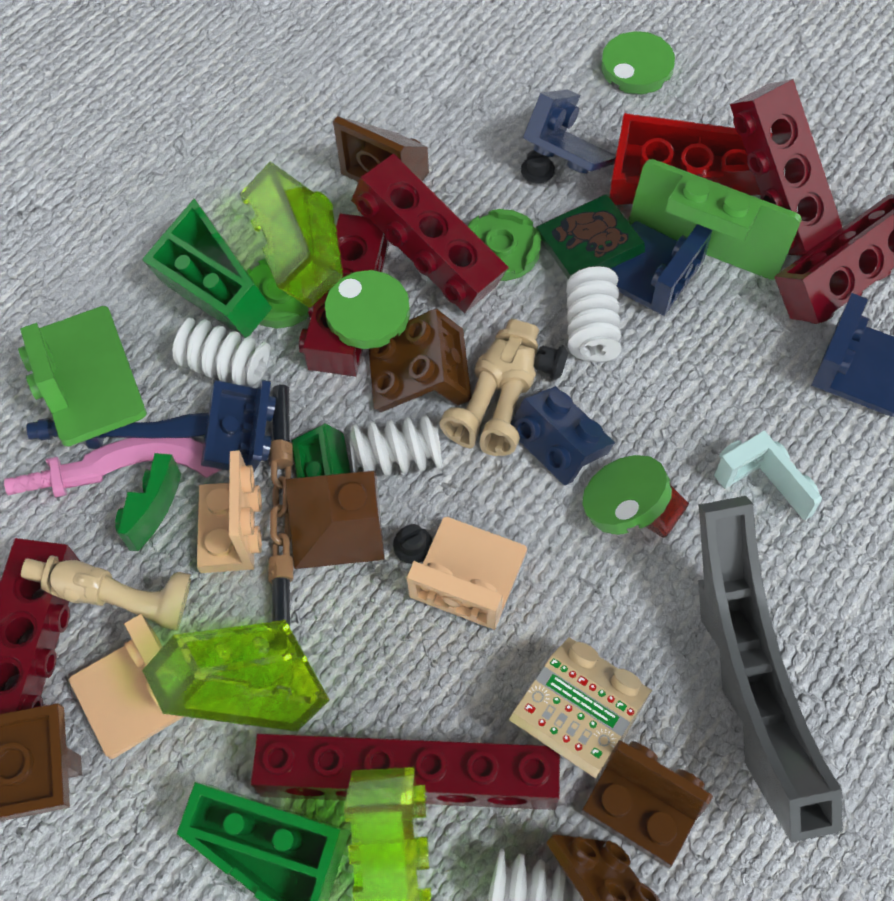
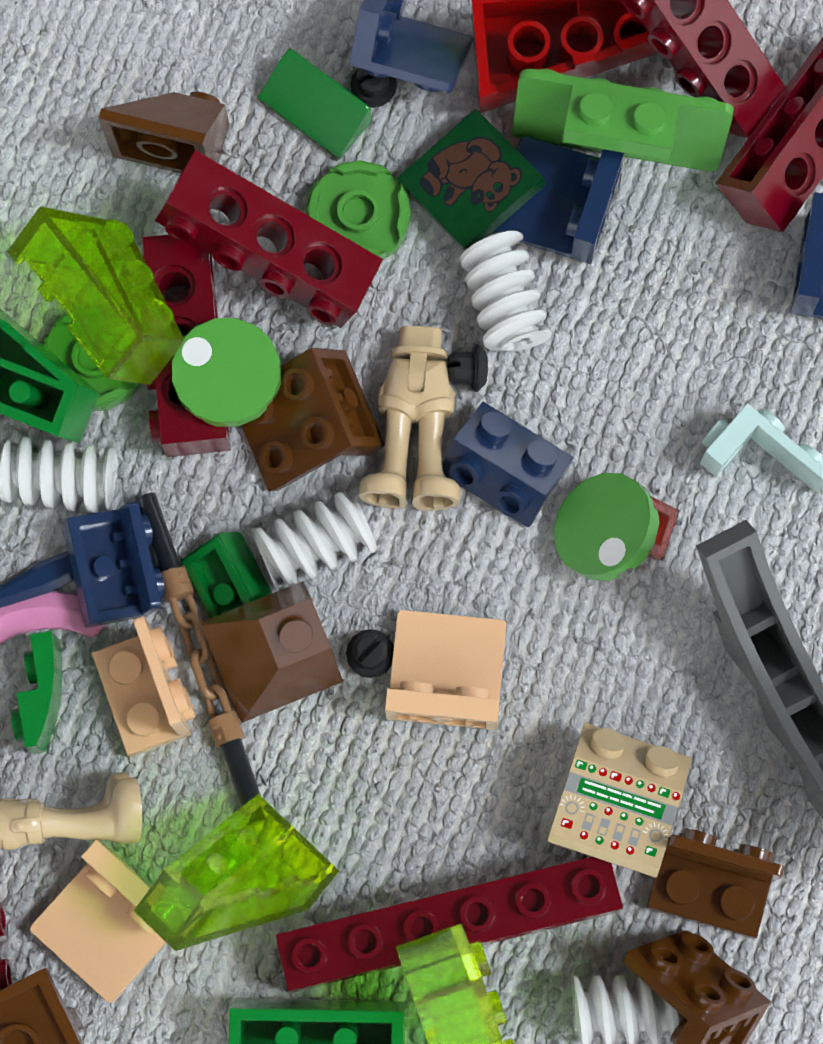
camera: 15 degrees left, 15 degrees up
(493, 169) = (315, 104): none -> green slope

